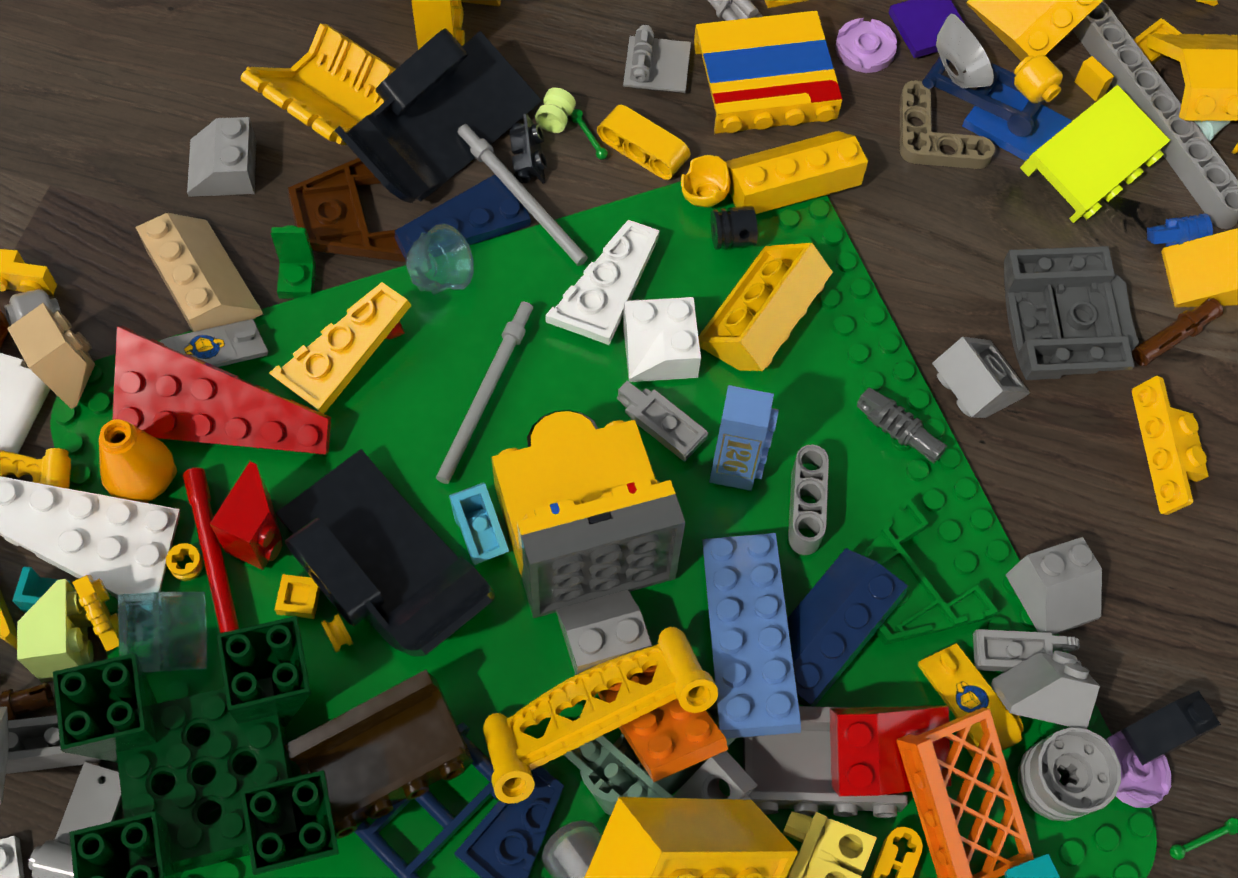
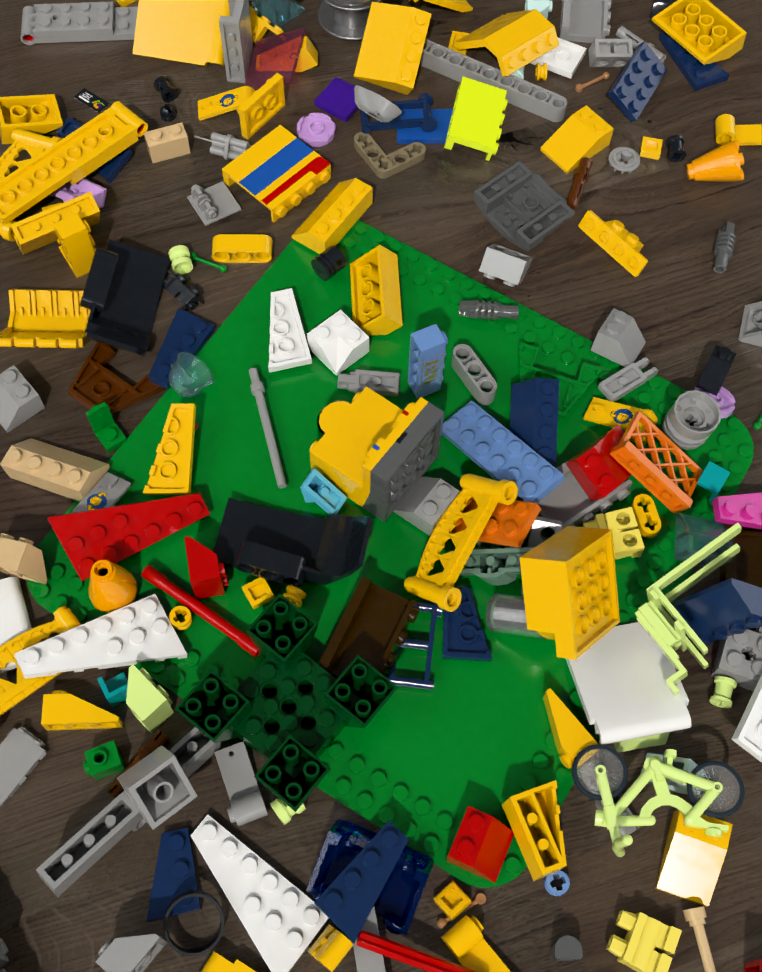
camera: 35 degrees left, 0 degrees up
(93, 598) = (167, 673): yellow hinge -> none
(164, 630) = (201, 653): clear light blue slope -> none
(484, 153) = (160, 305): light grey bar -> none
(706, 181) = (295, 247): yellow hair -> none
(1038, 79) = (422, 95): yellow head -> none
(1049, 689) = (655, 386): light grey slope -> none
(1094, 78) = (444, 80): yellow tile -> none
(1181, 230) = (543, 133): blue hinge -> none

